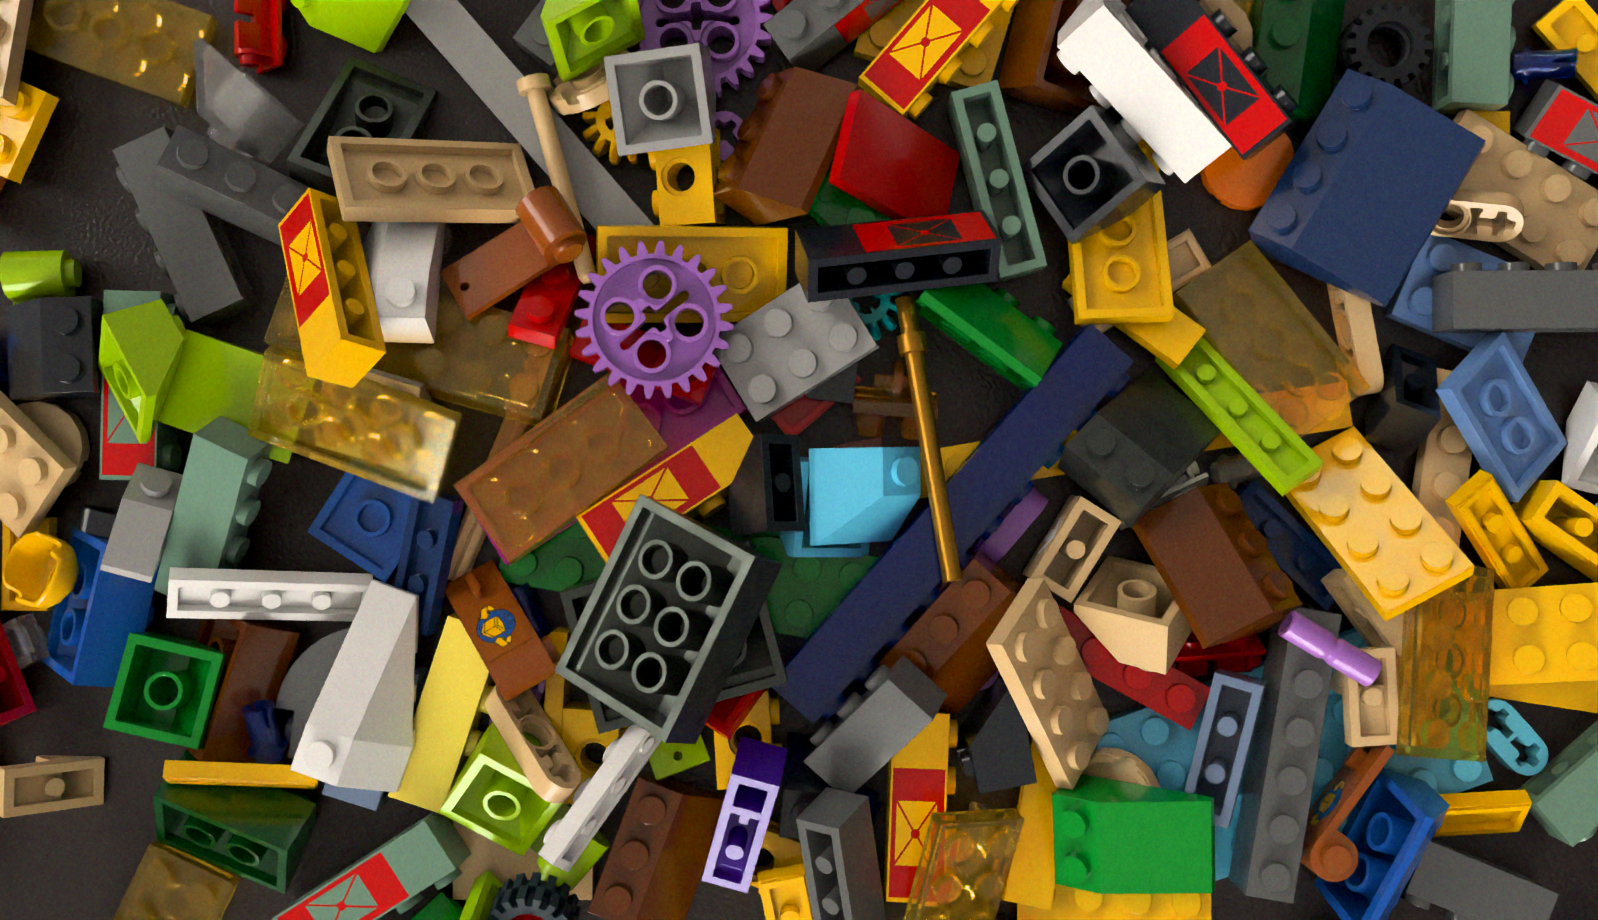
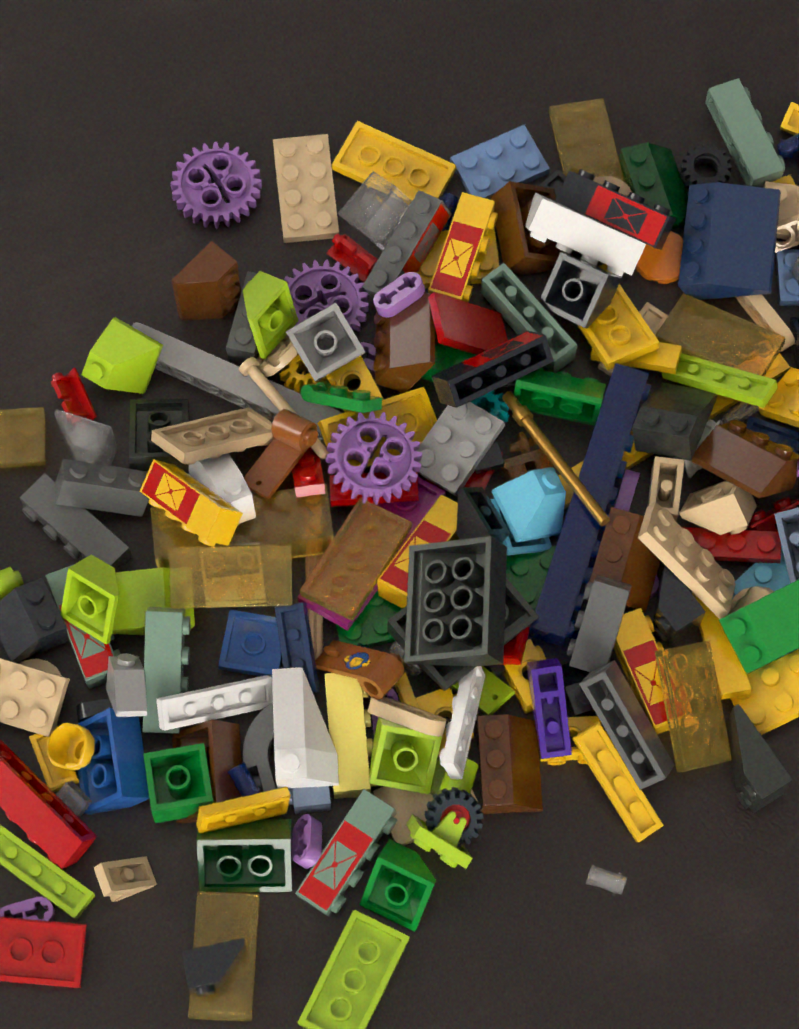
camera: 25 degrees left, 20 degrees down
(323, 846) = (306, 841): none -> medium lavender beam
(647, 202) = (340, 397): none -> green plate
(808, 67) = (399, 294): none -> medium lavender beam

